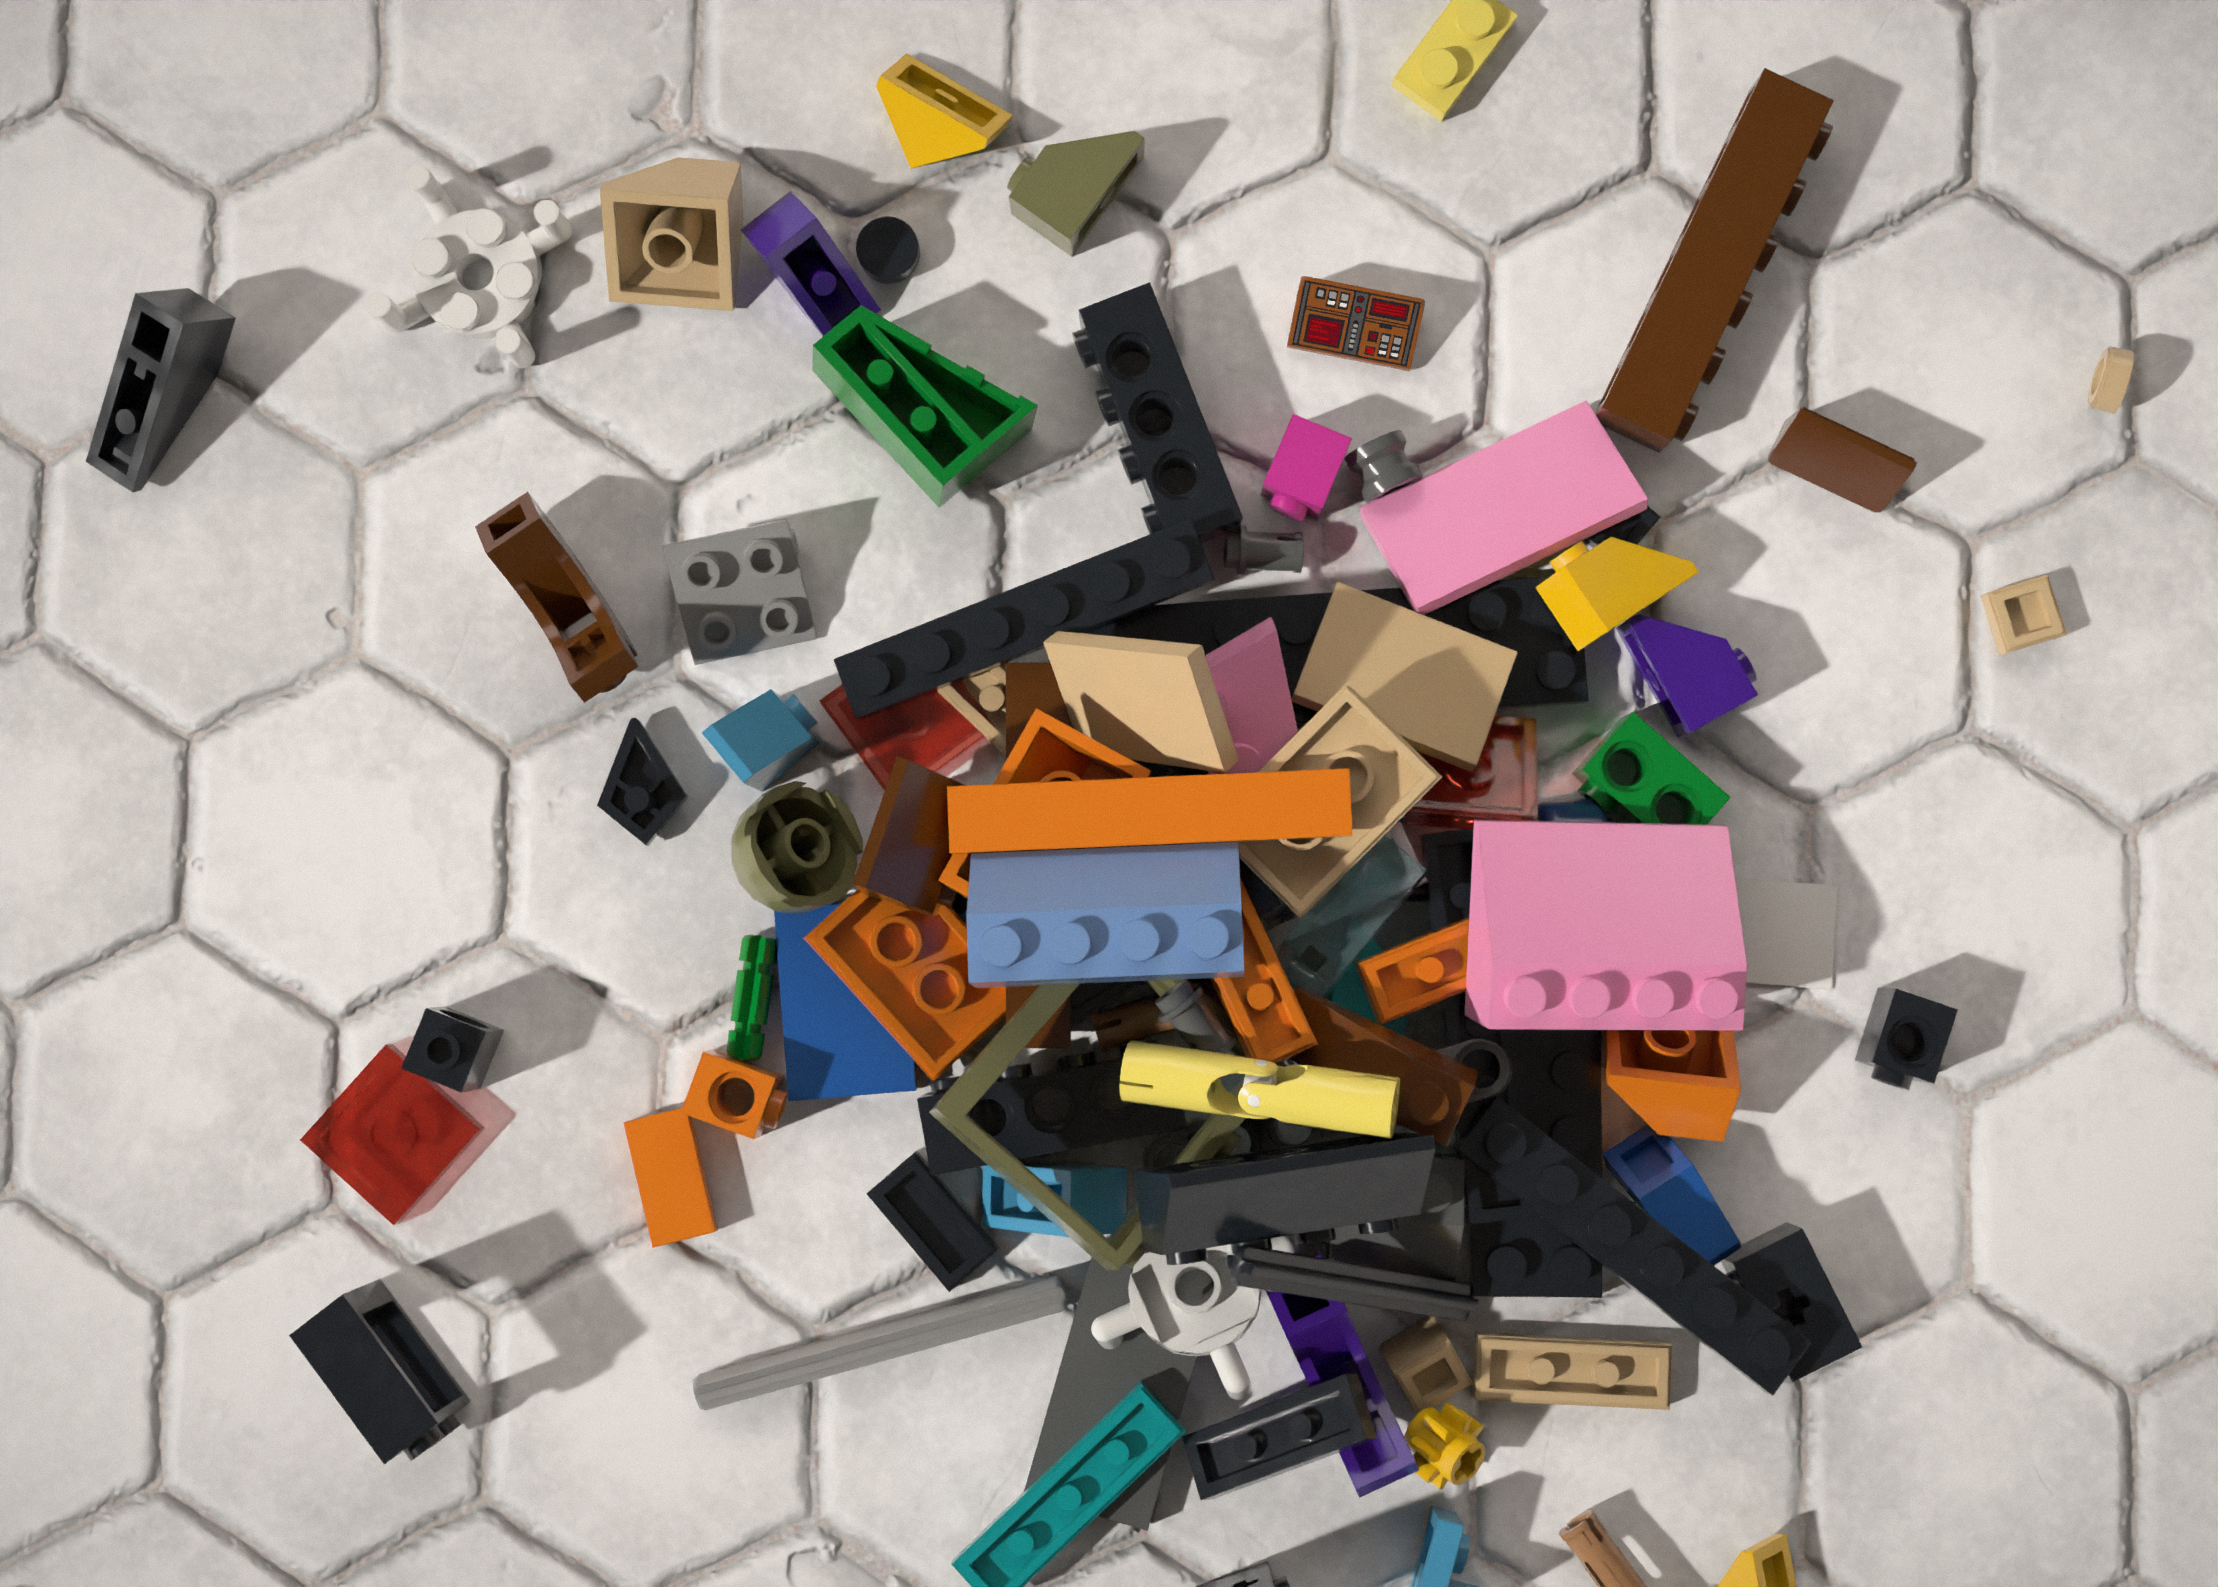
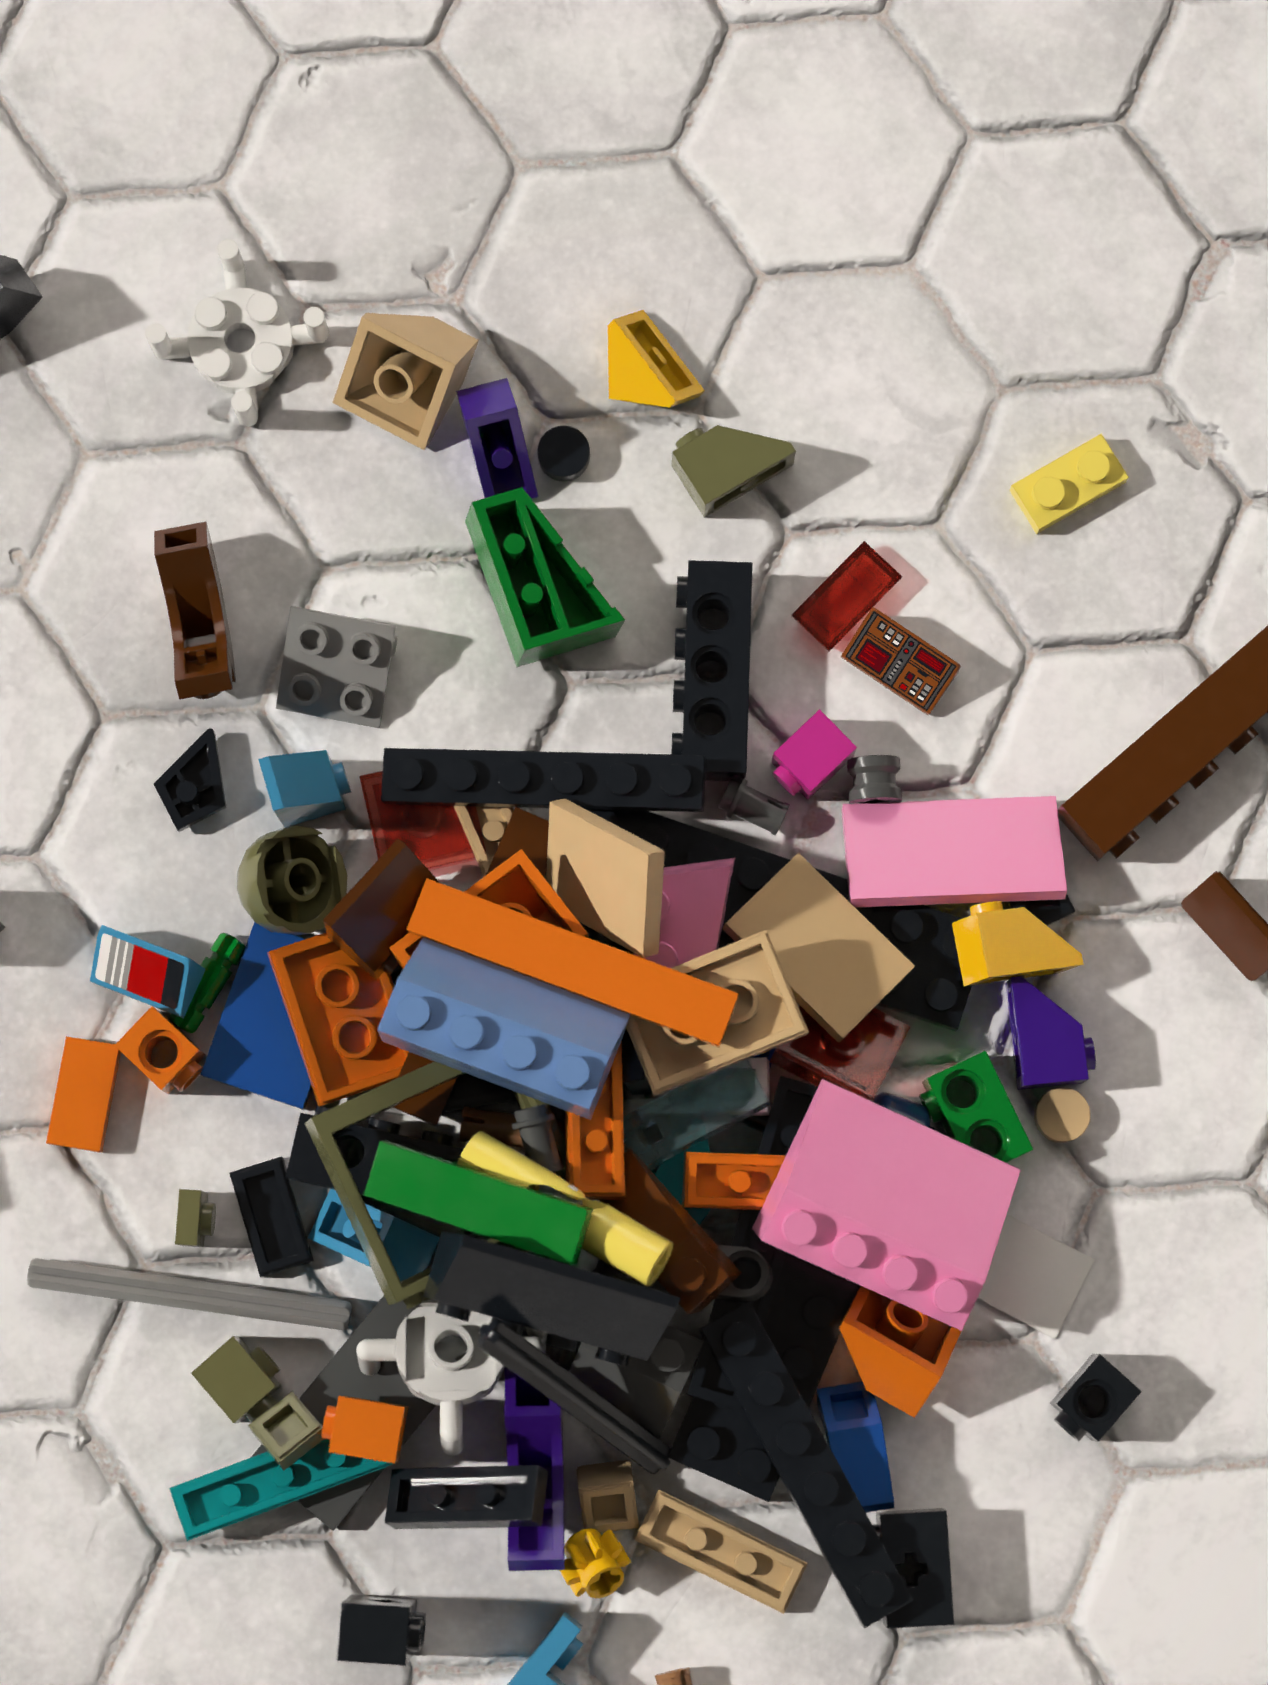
camera: 15 degrees right, 5 degrees down
(678, 1016) = (145, 971): none -> slope
(850, 1260) = (194, 1218): none -> olive plate
(977, 1414) = (239, 1379): none -> olive brick
(1053, 1448) = (287, 1430): none -> olive tile
(1139, 1413) = (365, 1428): none -> orange brick
(1164, 1124) = (478, 1202): none -> green tile
(1265, 276) = (846, 596): none -> clear red tile
(1739, 745) = (1062, 1115): none -> tan tile

